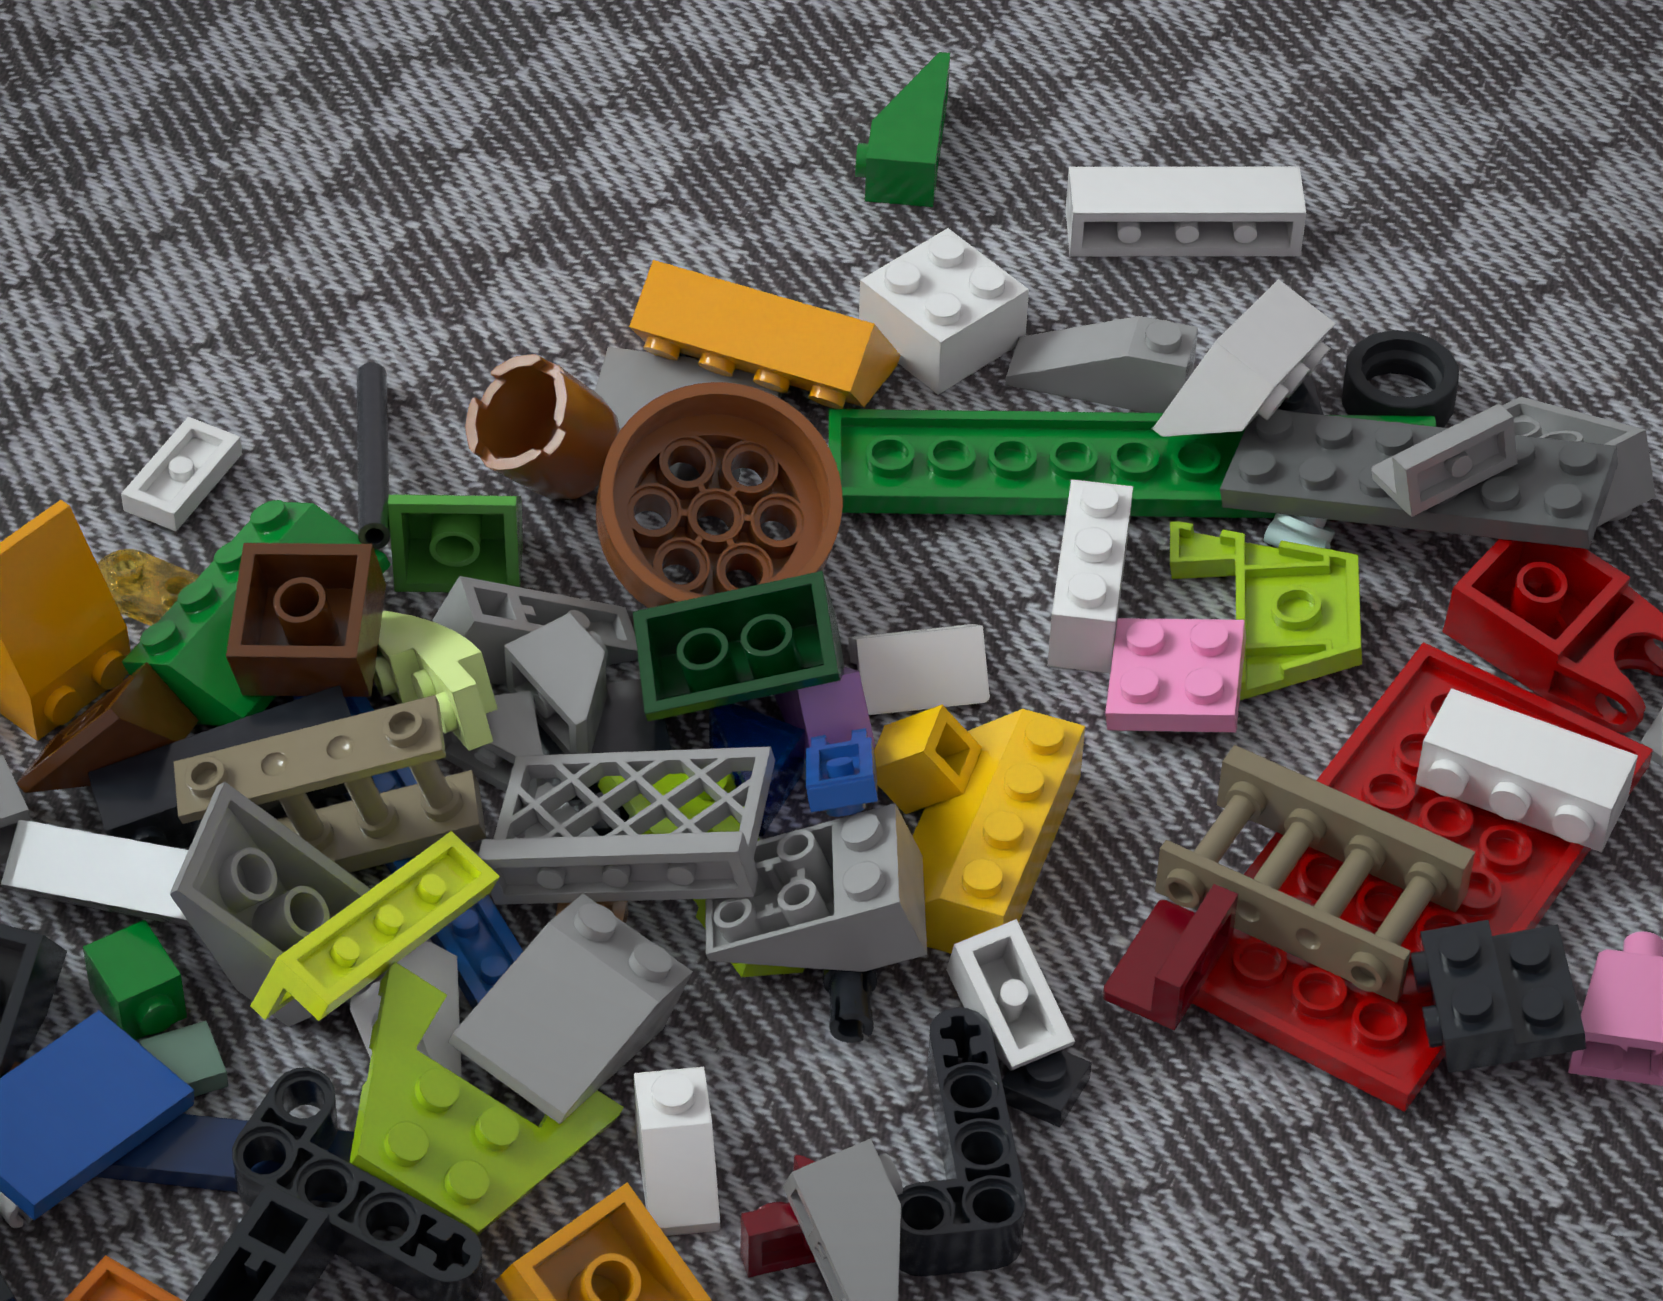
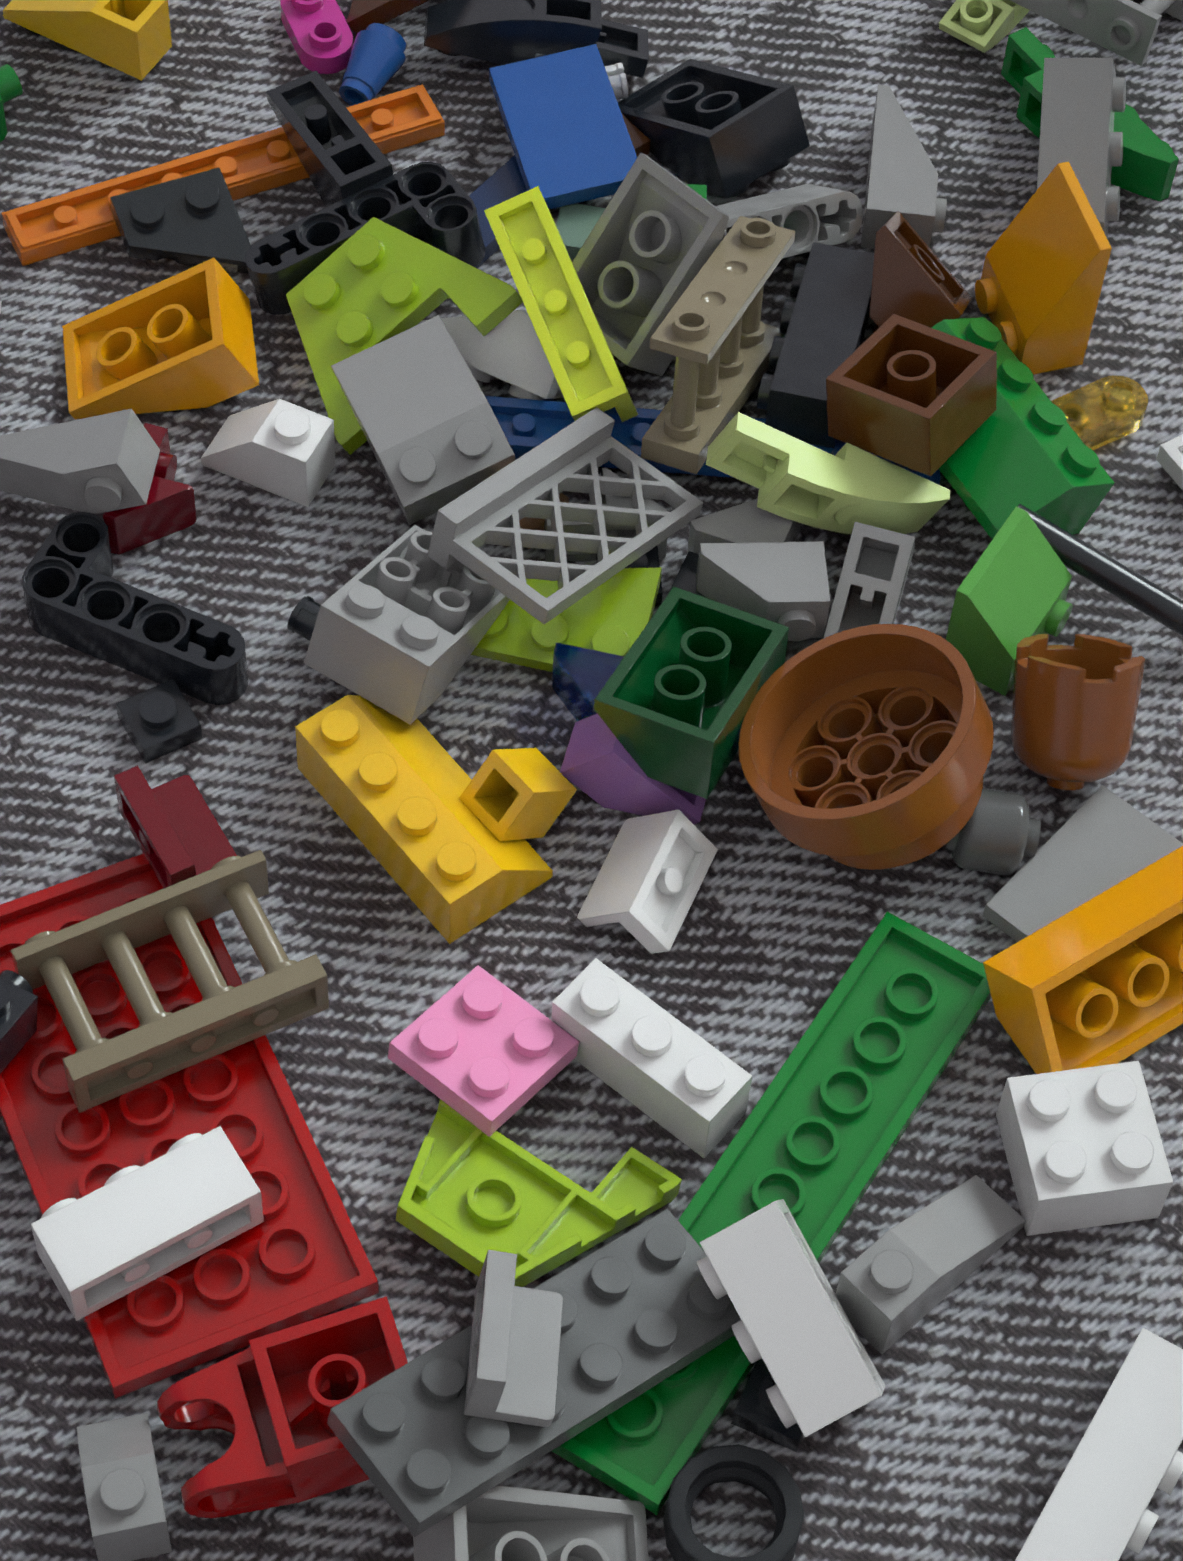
camera: 120 degrees right, 10 degrees up
(841, 774) = (507, 672): blue hinge -> none
(1006, 986) = (232, 708): white slope -> none

